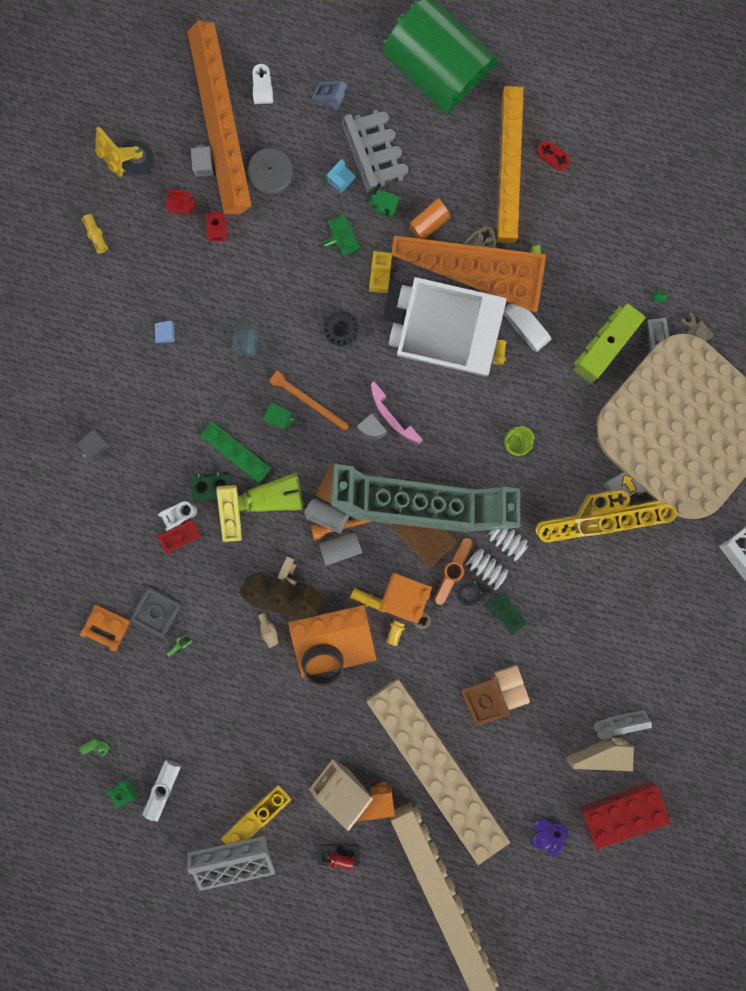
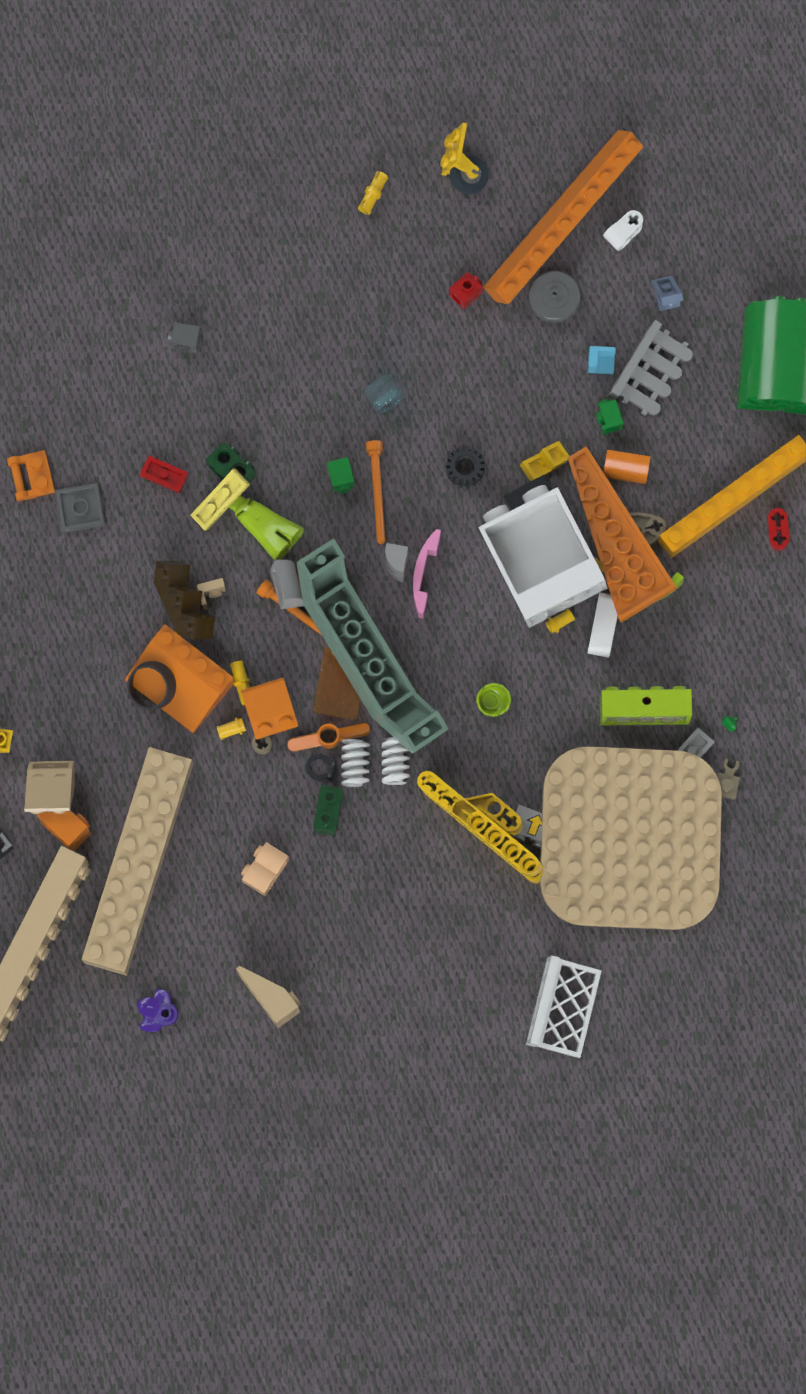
camera: 50 degrees right, 10 degrees down
(164, 332) = (336, 320): light blue slope -> none
(175, 517) = (179, 456): white piece -> none
(180, 202) = (461, 243): red brick -> none
(180, 644) = (69, 550): bright green hand -> none
(202, 161) = (513, 232): light grey brick -> none
(235, 452) = (279, 464): green plate -> none
(268, 631) = (142, 616): tan piece -> none
(340, 548) = (267, 622): light grey brick -> none
(341, 236) = (548, 403): green plate -> none
(485, 701) = (233, 854): dark orange plate -> none
(622, 724) = (311, 994): light grey hinge -> none
(625, 815) = (231, 1060): red brick -> none

